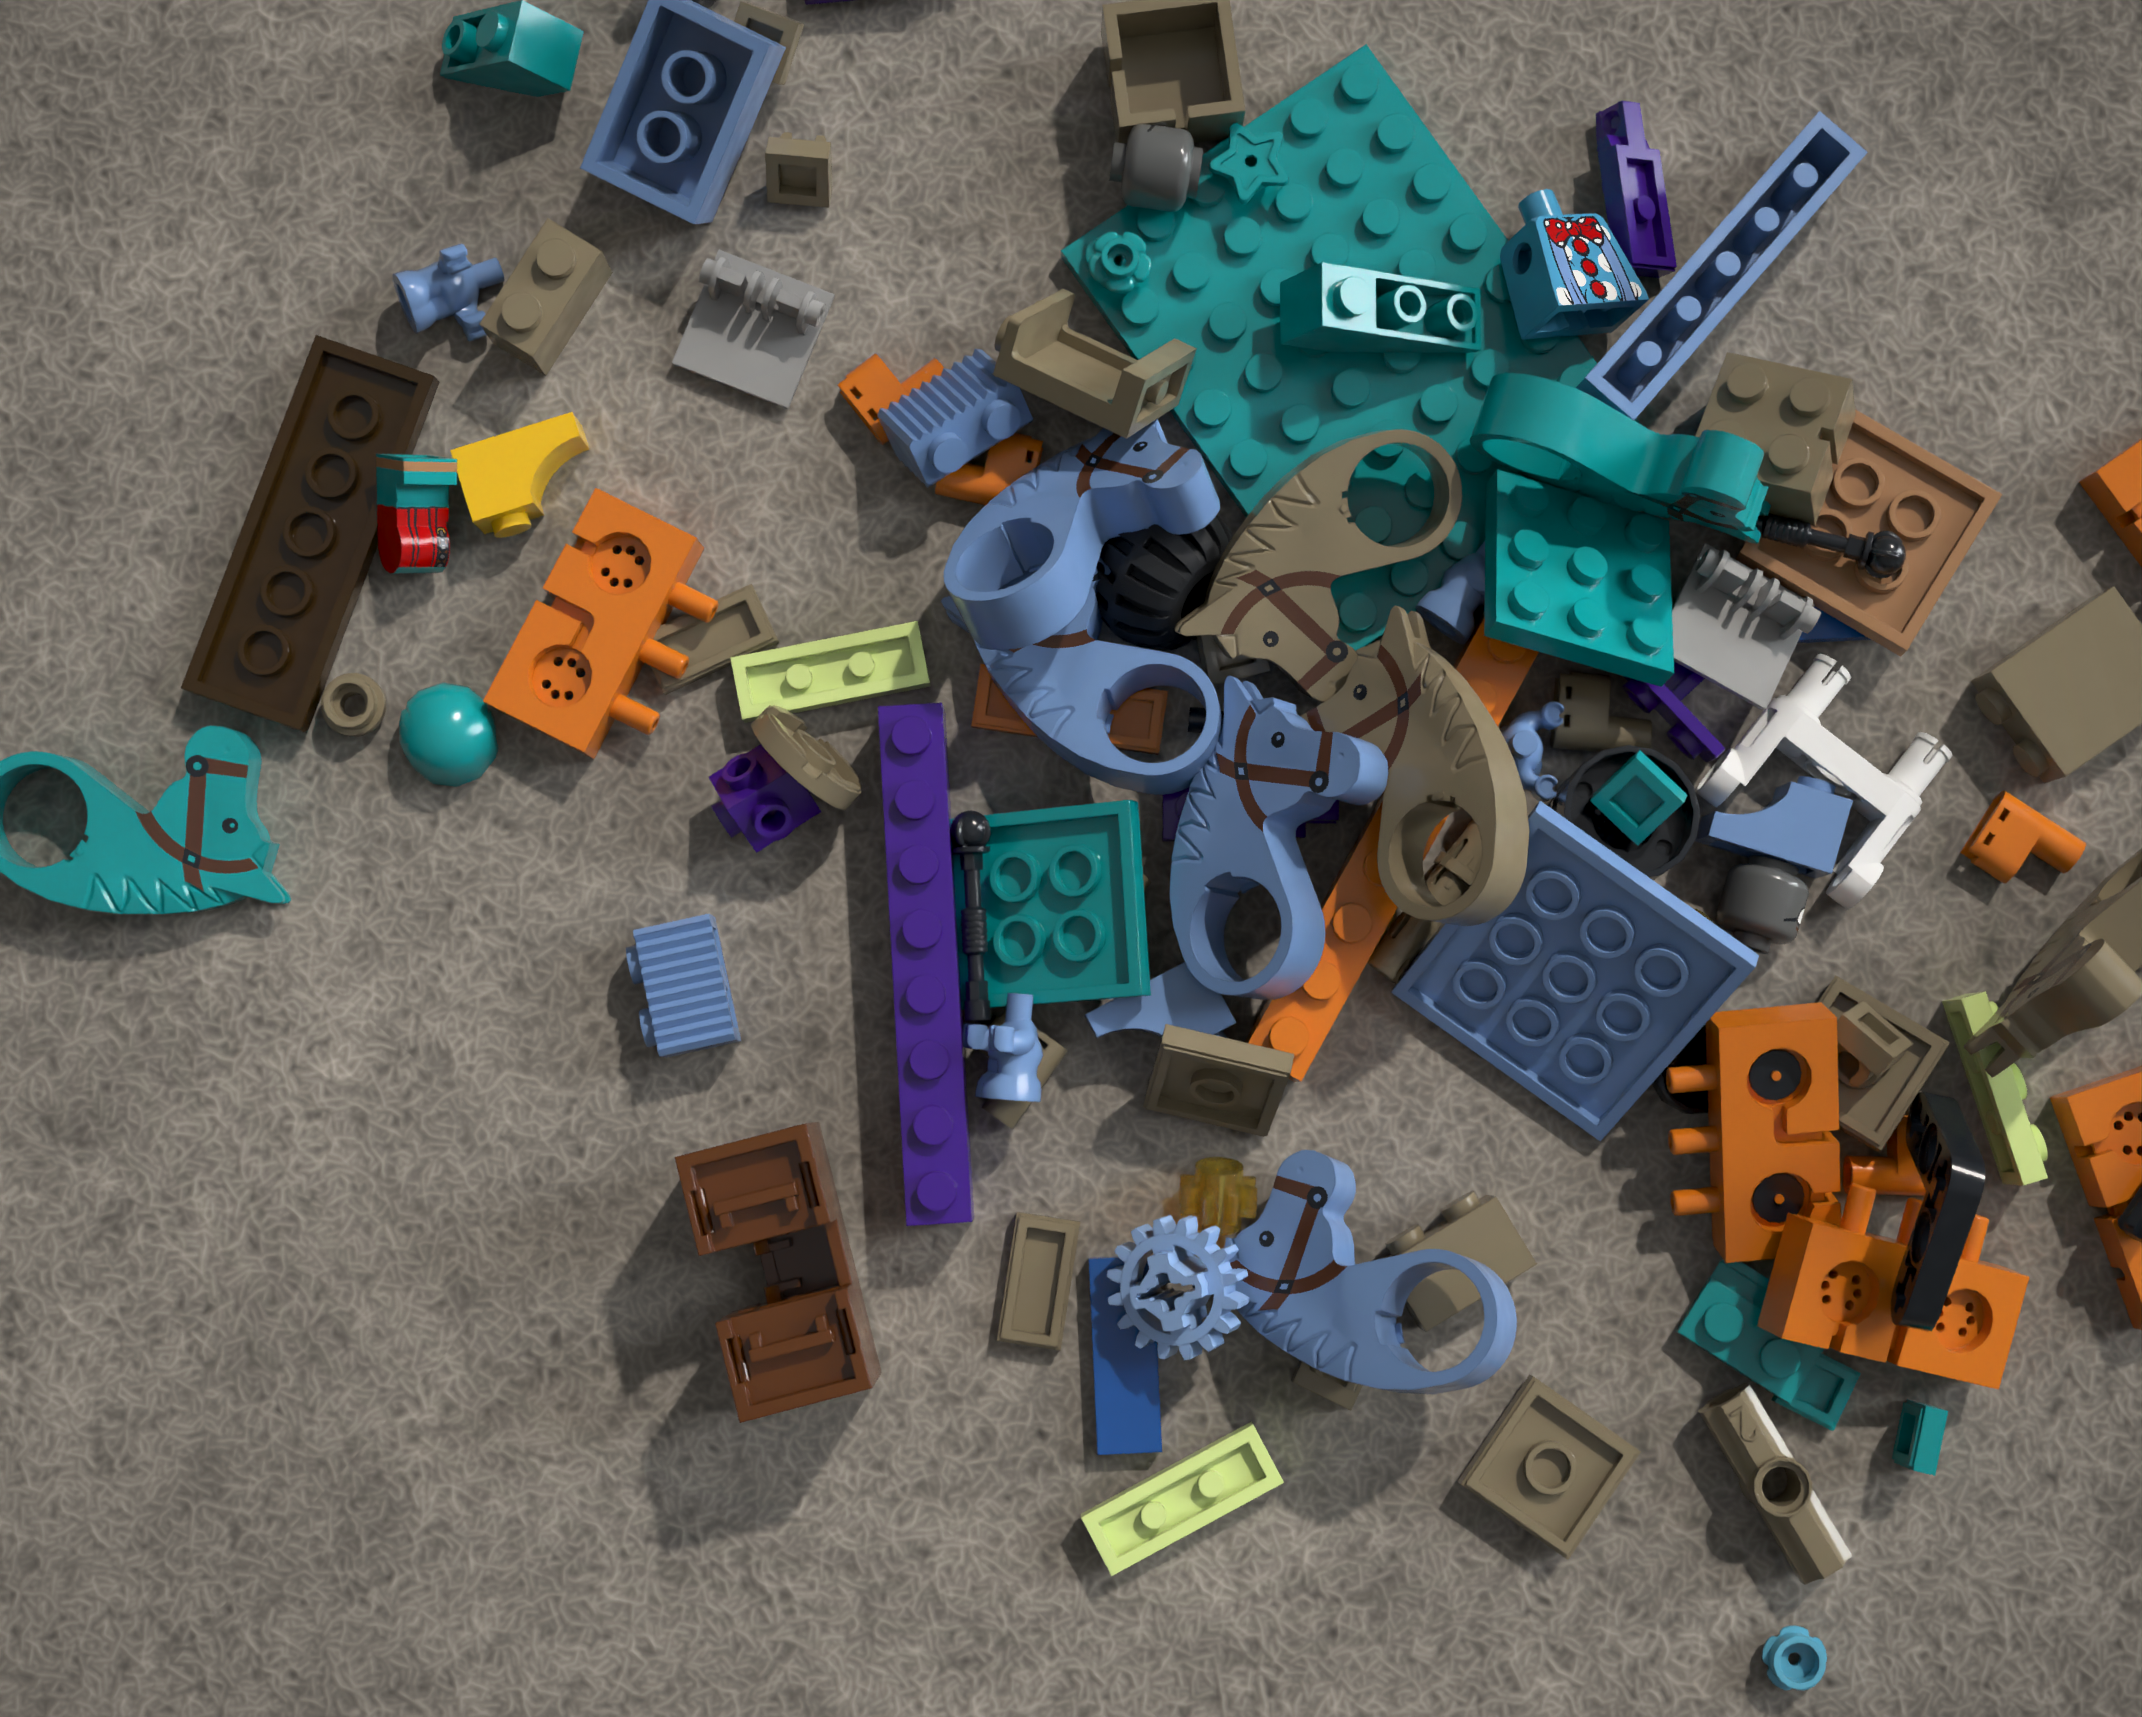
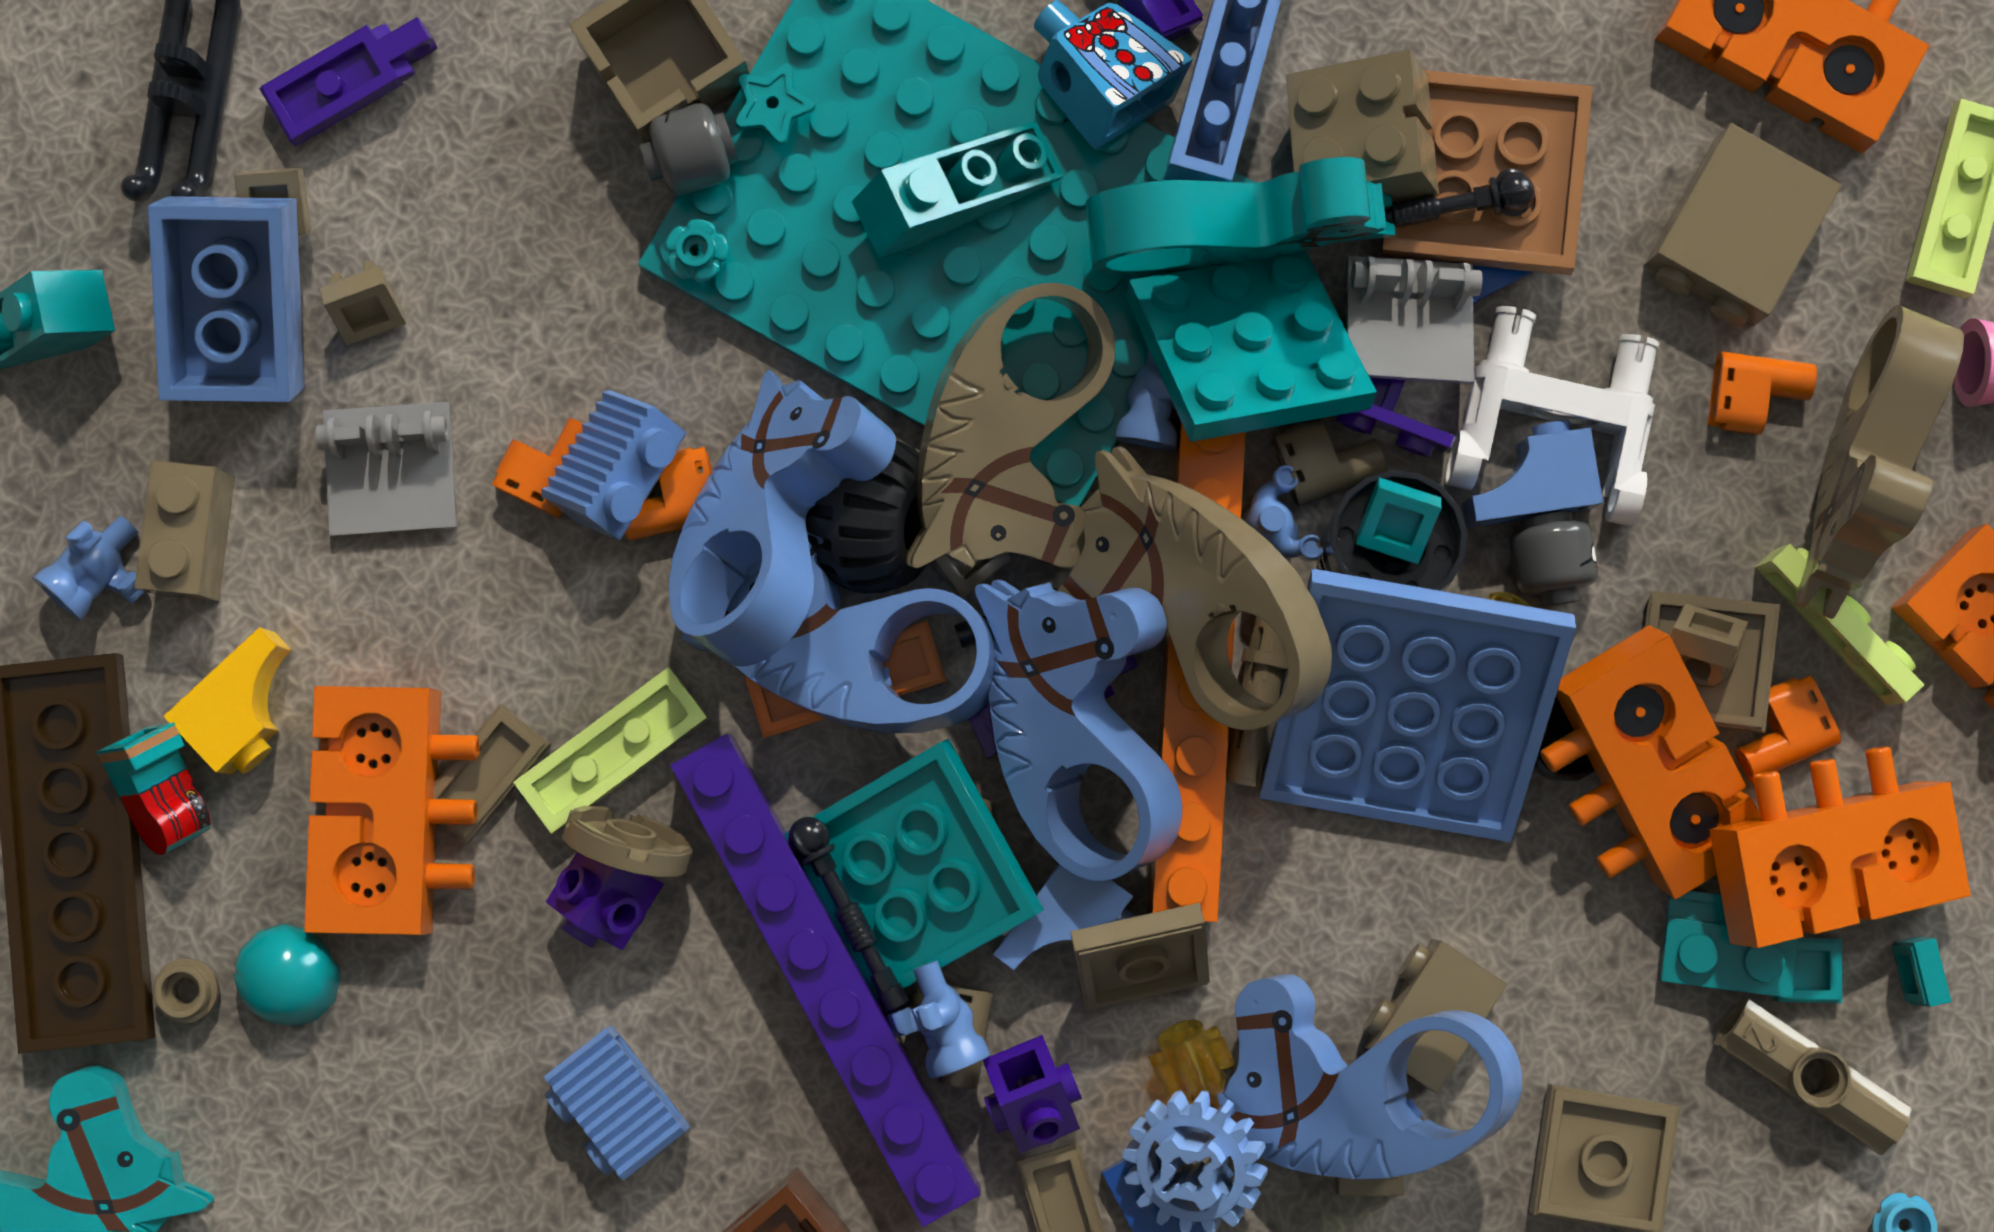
camera: 25 degrees left, 0 degrees up
(1059, 1156) = (1031, 1094): none -> dark purple brick
(1085, 375) = (712, 369): dark tan panel -> none
(1954, 1185) = (1847, 741): black beam -> none

